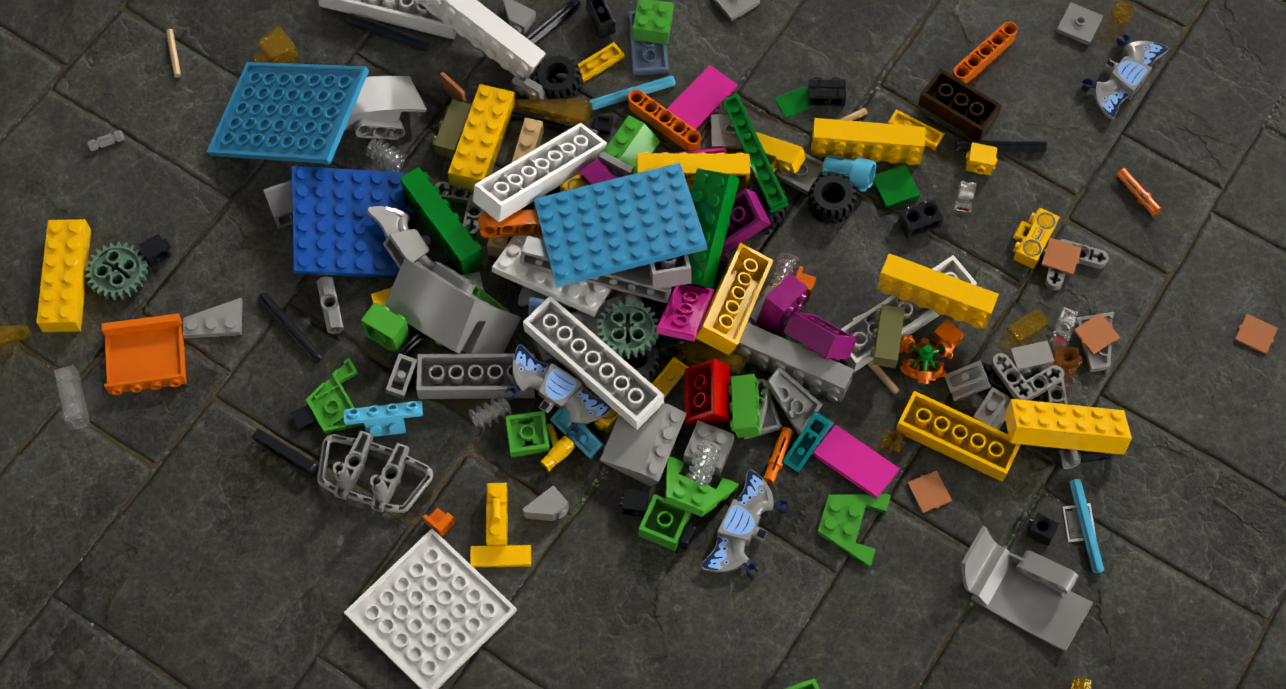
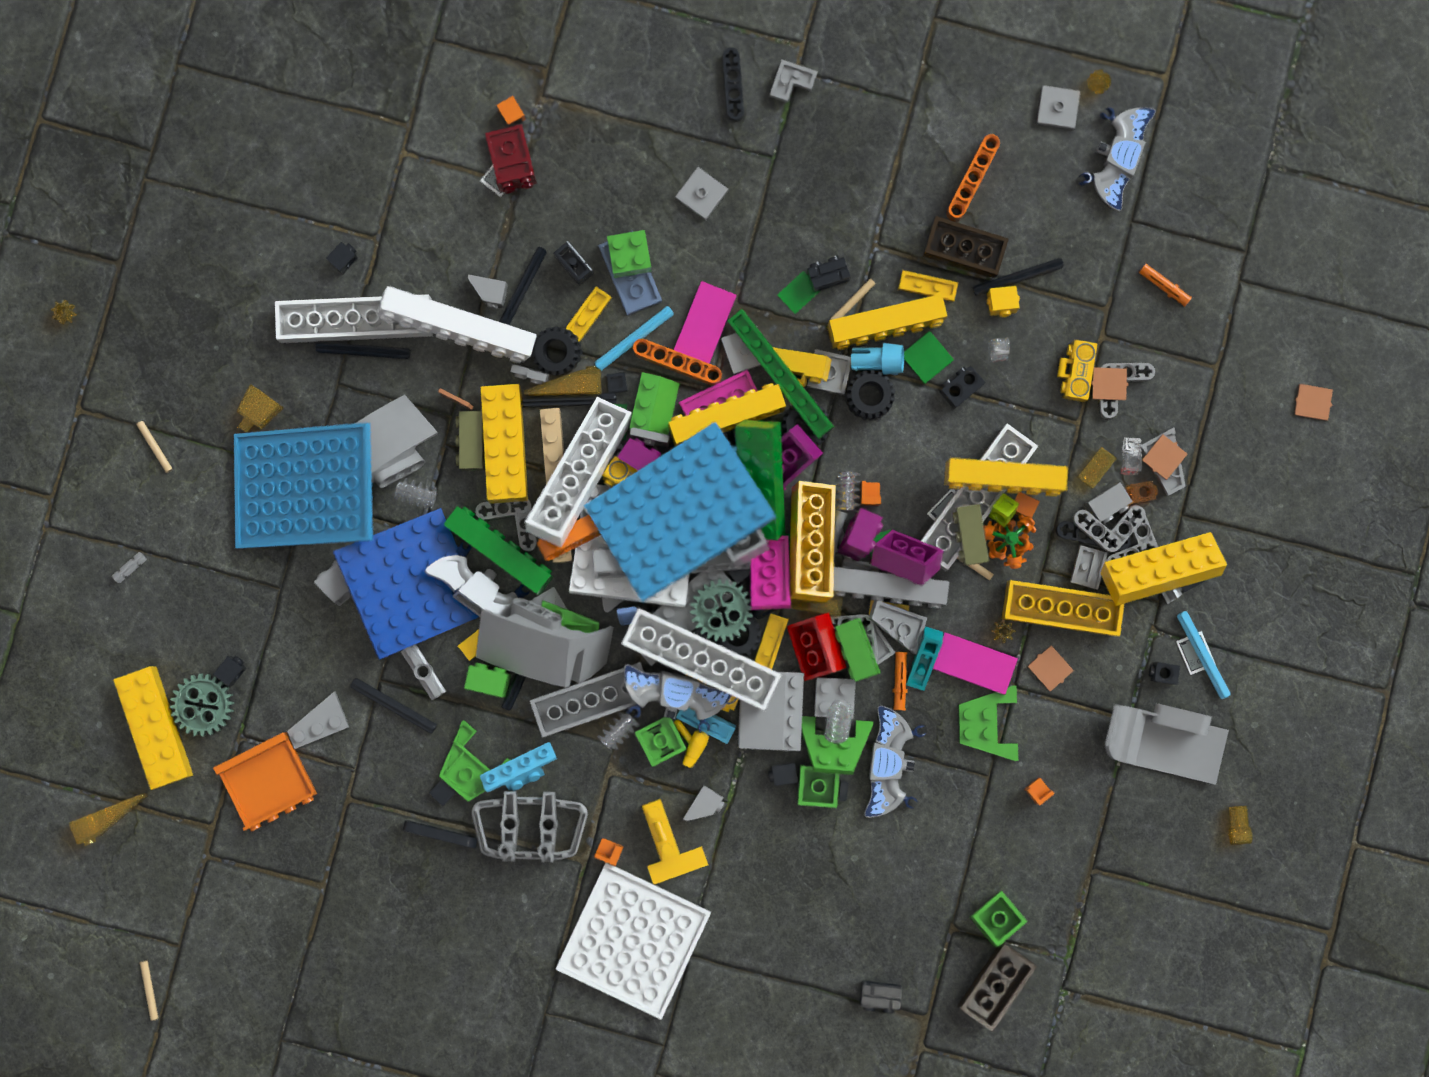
camera: 20 degrees left, 20 degrees up
(72, 397) = (216, 848): clear brick -> none
(401, 376) = (521, 724): light grey brick -> none
(882, 601) = (1039, 791): none -> orange panel
(926, 327) = (1003, 510): none -> lime brick
(967, 381) = (1055, 547): light grey plate -> none

